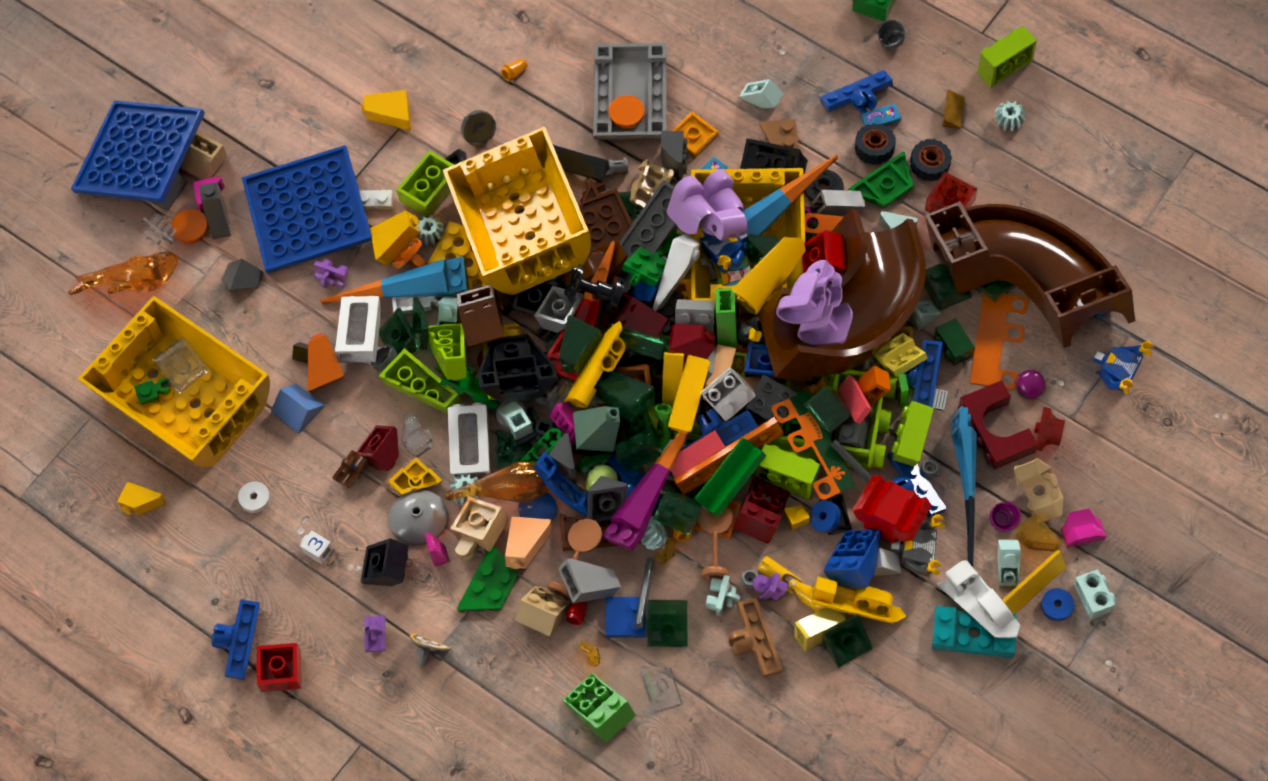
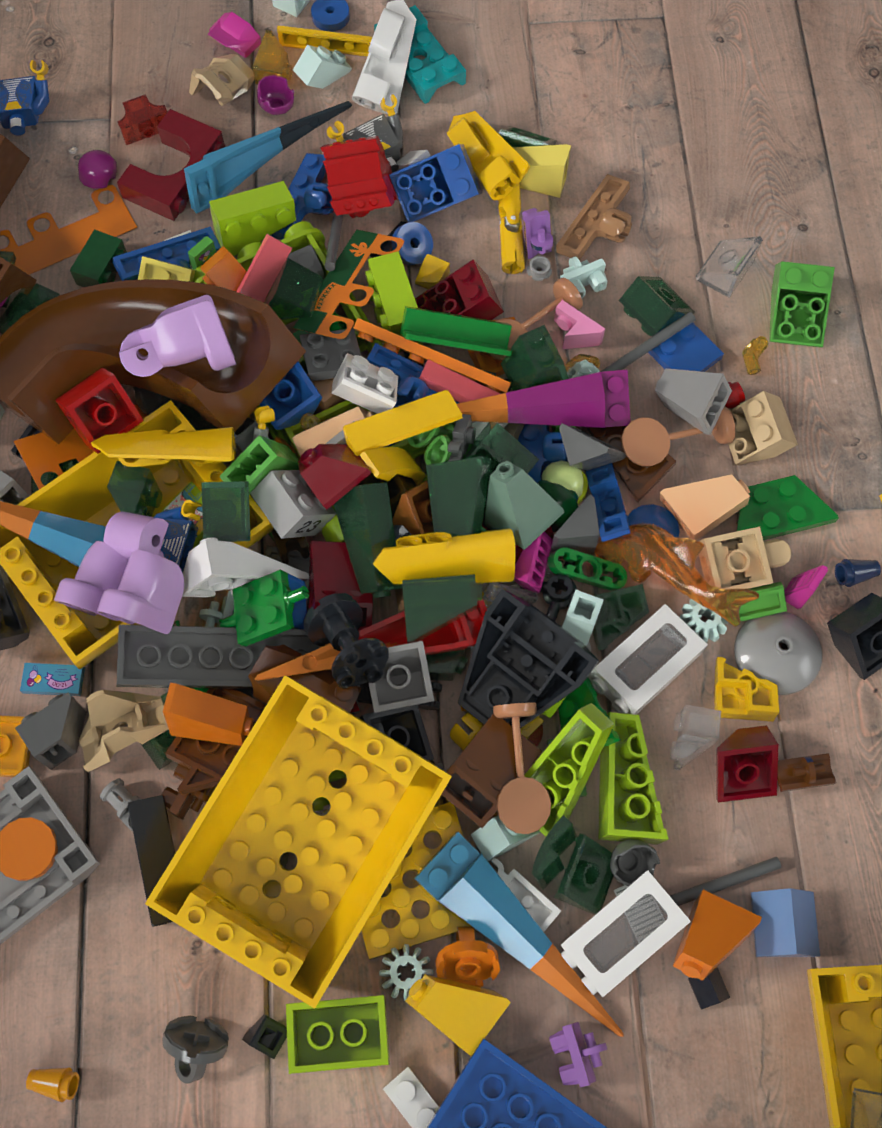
camera: 135 degrees left, 5 degrees up
(340, 395) = (727, 880): none -> dark grey bar
(420, 591) = (855, 571): none -> dark blue cone
(443, 529) = (770, 602): none -> bright green tile
(451, 317) = (523, 801): none -> nougat piece
(614, 210) = (205, 716): none -> orange slope
(662, 432) = (463, 436): none -> dark grey plate
(687, 568) = (582, 329): none -> bright pink slope
(712, 276) = (226, 510): none -> clear green slope

